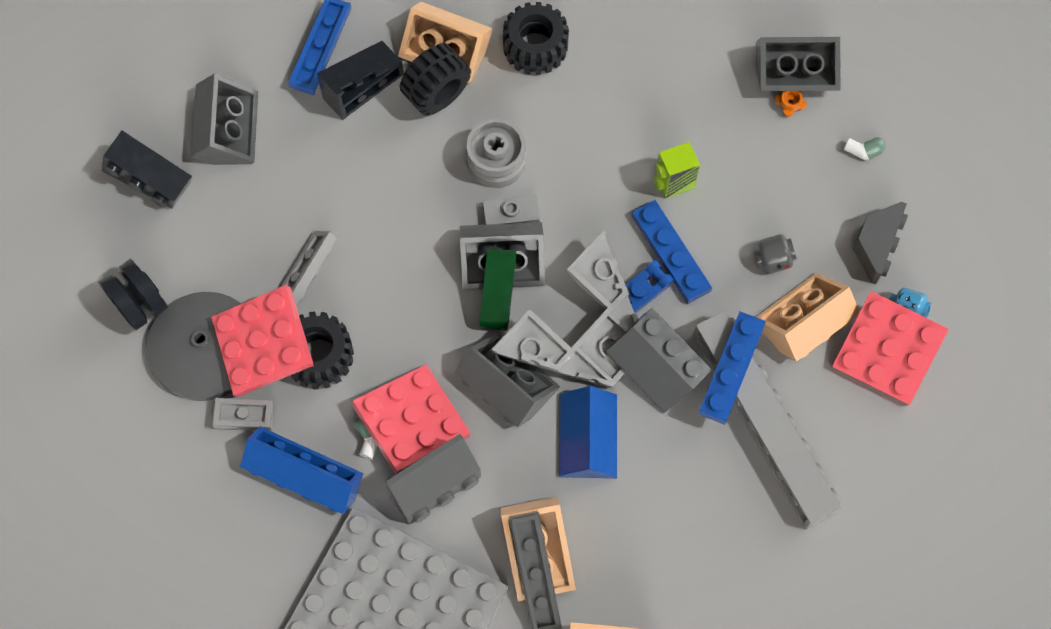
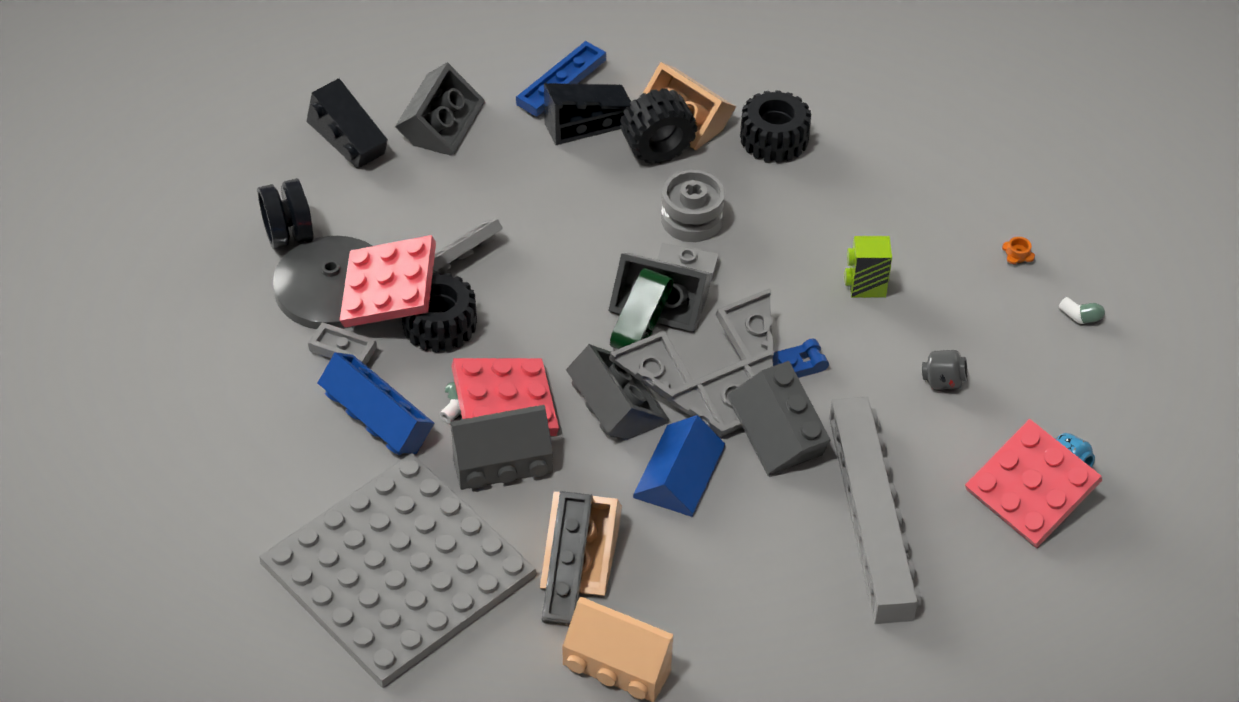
camera: 20 degrees right, 20 degrees down
(671, 251) = (837, 341): blue plate -> none
(732, 368) = (852, 444): blue plate -> none
(798, 63) = (1038, 214): dark grey slope -> none
(808, 315) = (957, 434): light nougat slope -> none
(878, 240) = (1064, 387): dark grey slope -> none

